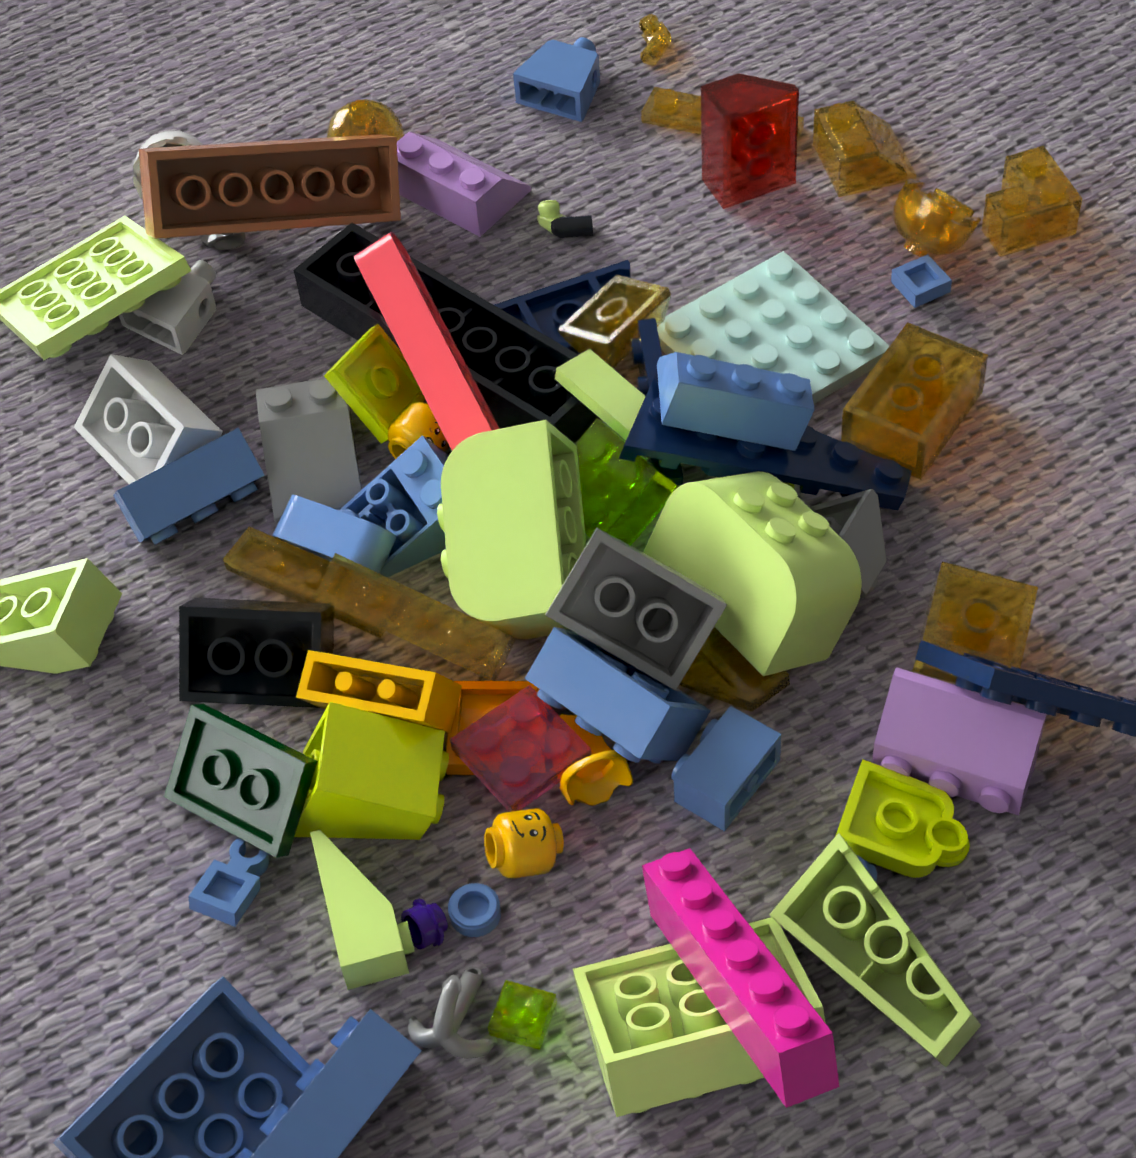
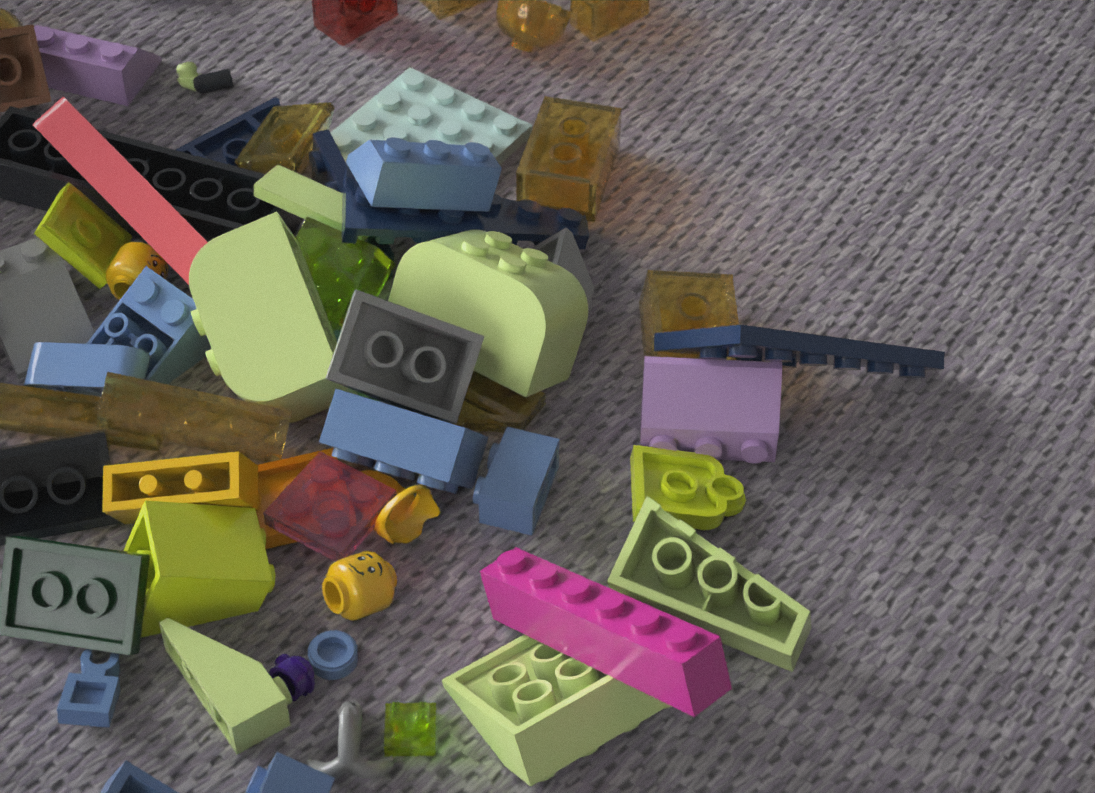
camera: 25 degrees left, 5 degrees down
(921, 281) = (536, 69): medium blue plate -> none

